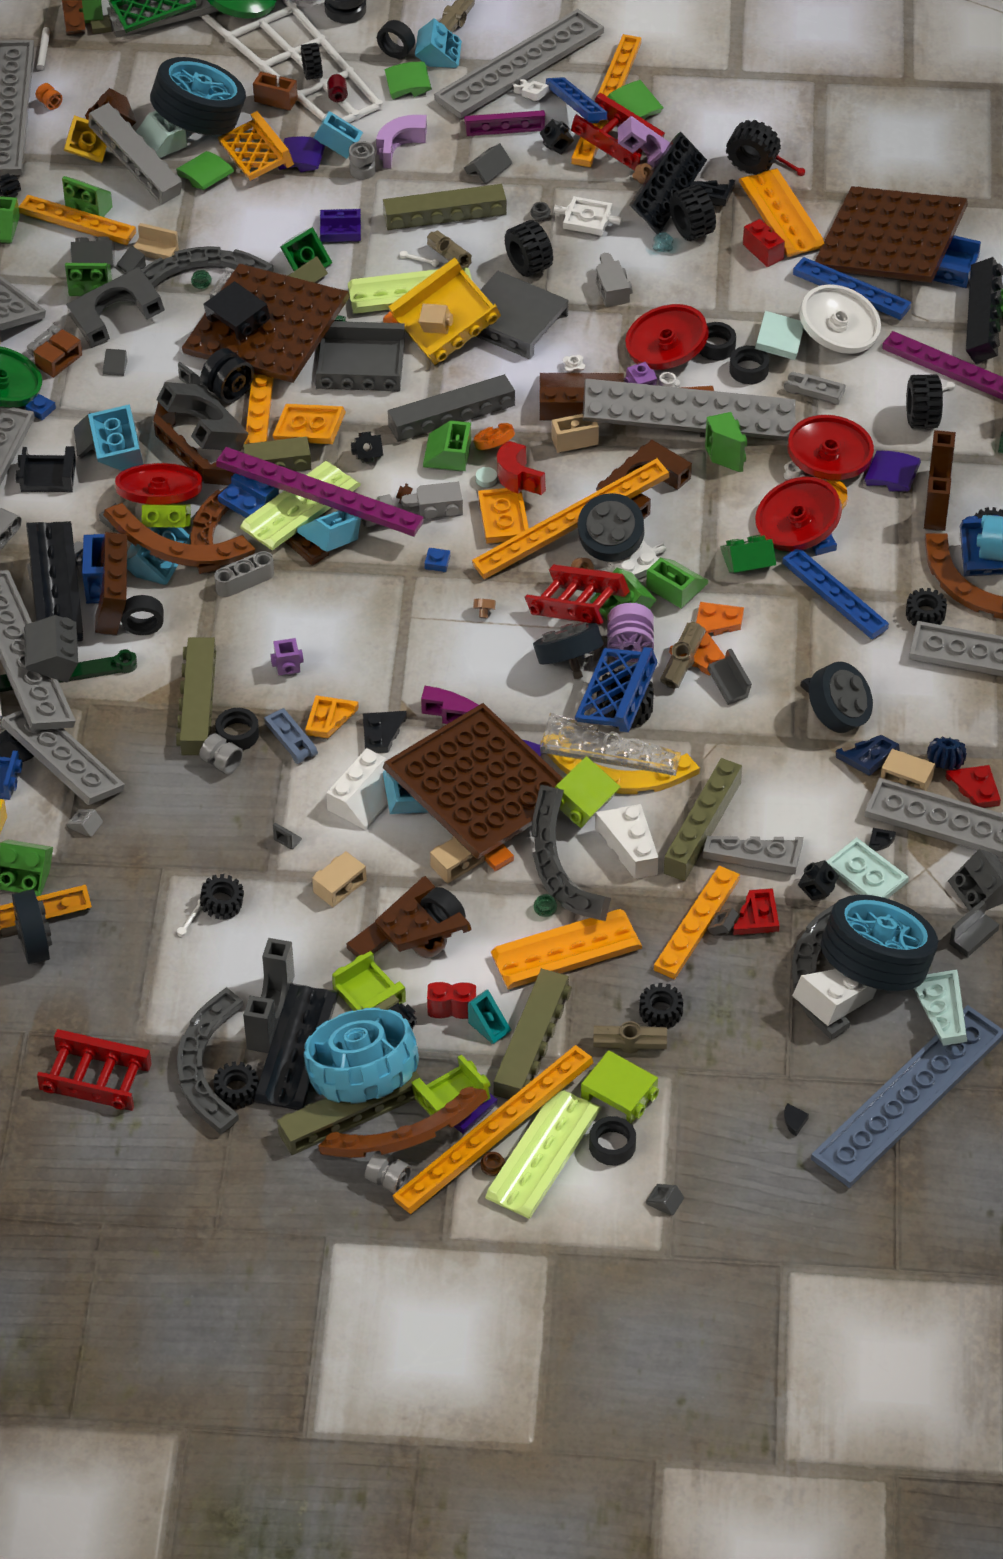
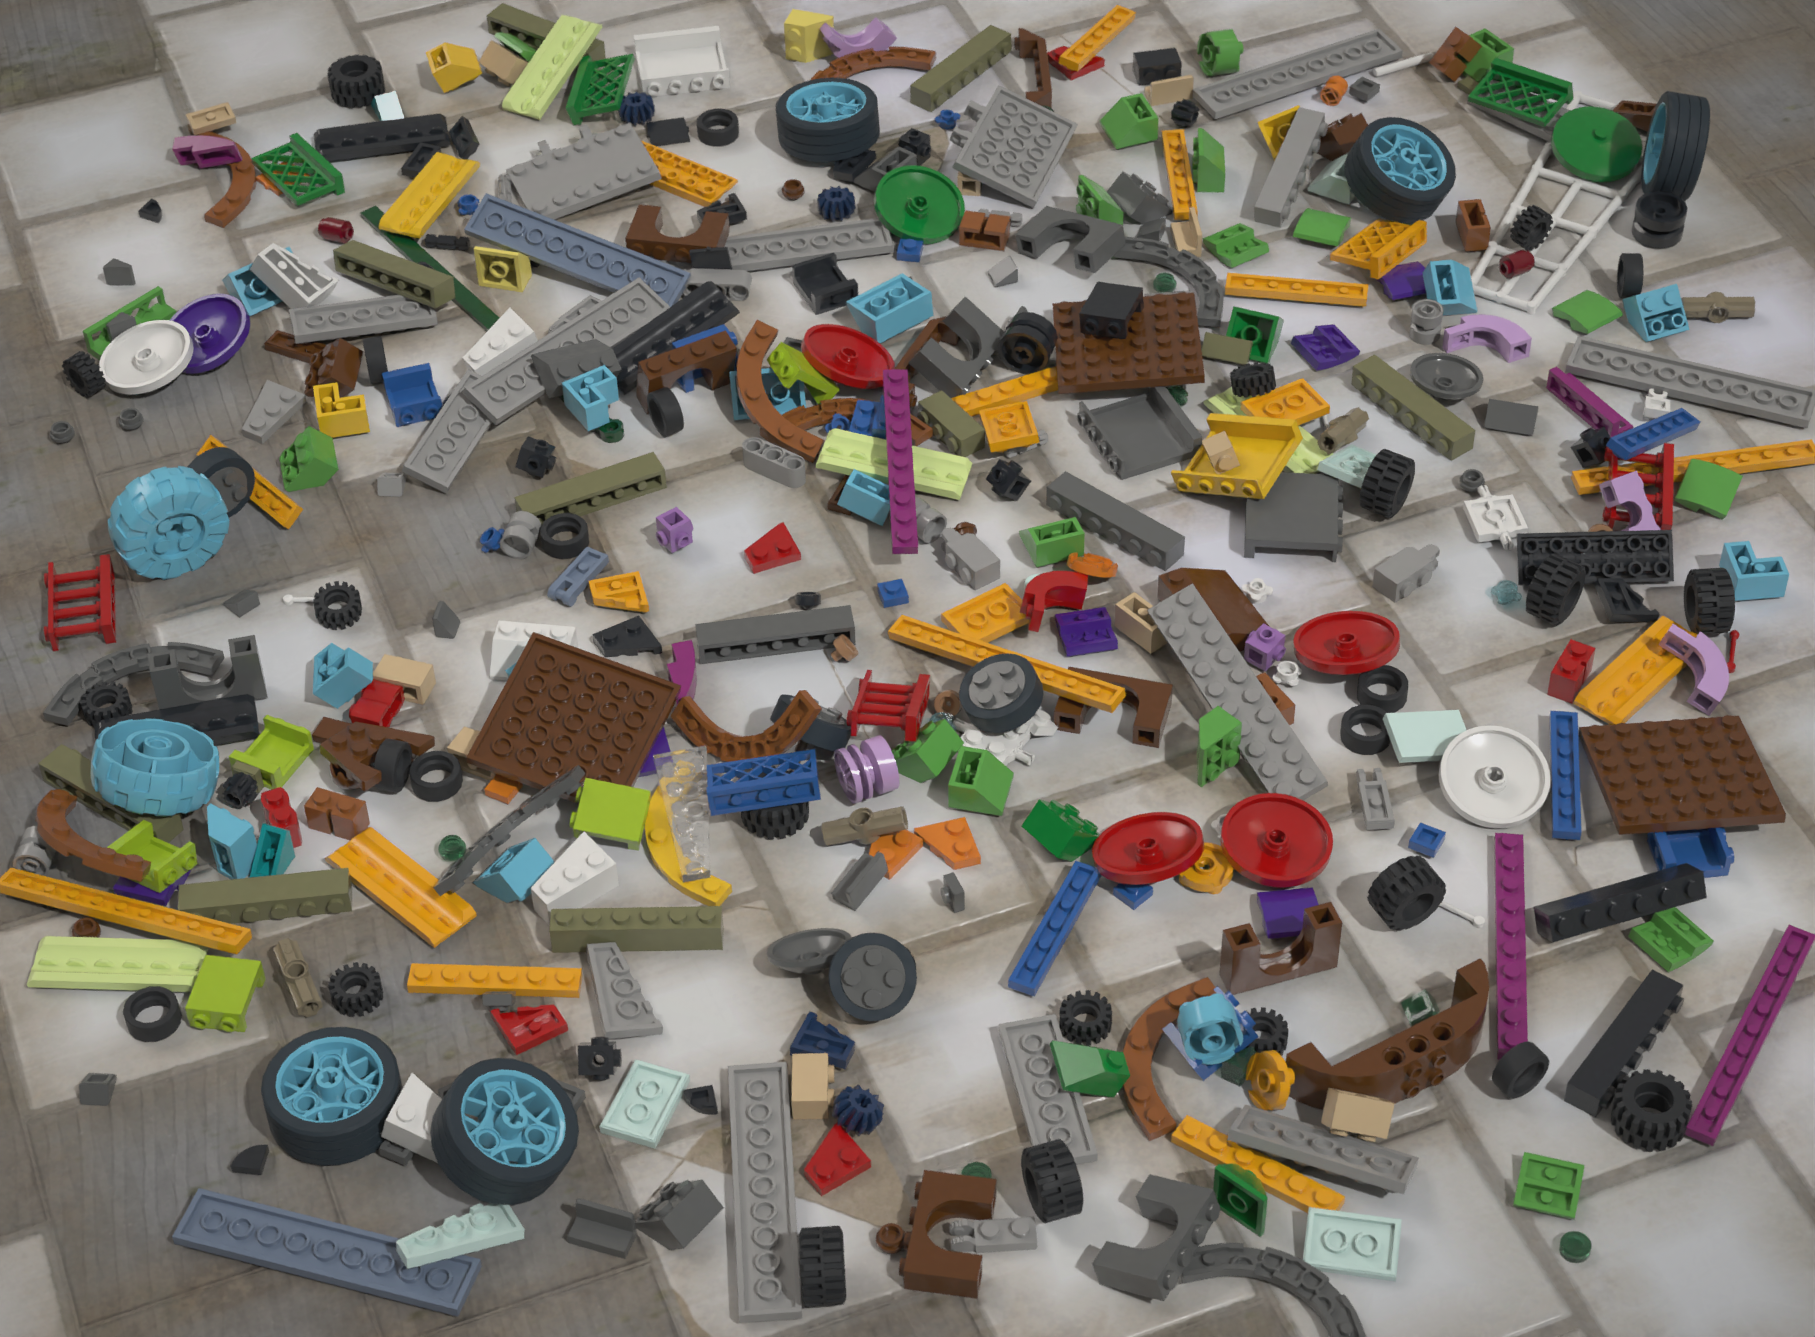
camera: 65 degrees right, 5 degrees down
(59, 80) = (1364, 89): none -> dark grey plate
(72, 965) = (168, 522): none -> medium azure wheel
(98, 655) = (590, 395): none -> medium azure brick
(134, 714) = (536, 457): none -> black brick
(165, 961) = (243, 602): none -> dark grey slope
(188, 224) = (1235, 245): none -> bright green slope
(208, 769) = (491, 539): none -> blue plate
(229, 522) = (838, 420): none -> blue plate
(266, 212) = (1296, 289): none -> light orange plate
(321, 916) = (340, 674): none -> medium azure brick
(339, 611) = (772, 550): none -> red wing
(359, 904) = (378, 704): none -> red brick
(368, 270) = (1253, 379): none -> black tyre
(404, 266) = (1290, 401): none -> light orange plate
(413, 608) = (808, 599): none -> black tile
(432, 173) = (1446, 376): none -> dark grey dish
(441, 637) = (773, 634): none -> dark grey brick
(461, 965) = (347, 813): none -> dark orange piece
(466, 1035) = (231, 842): none -> medium azure slope
(470, 878) = (436, 761): none -> black tyre
(493, 259) = (1348, 464): none -> light aqua tile
(558, 468) = (1086, 631): none -> dark purple slope
(570, 686) = (734, 747): none -> dark orange plate
(598, 870) = (515, 871): none -> medium azure slope
(723, 119) = (1752, 576): none -> medium azure brick
(771, 633) = (953, 892): none -> dark grey plate
(777, 1024) = (335, 1112): none -> wheel
(785, 725) = (807, 950): none -> dark grey dish
(808, 178) = (1706, 663): none -> lavender arch
(869, 378) = (1427, 840): none -> blue plate
(977, 617) = (1089, 1068): none -> green slope

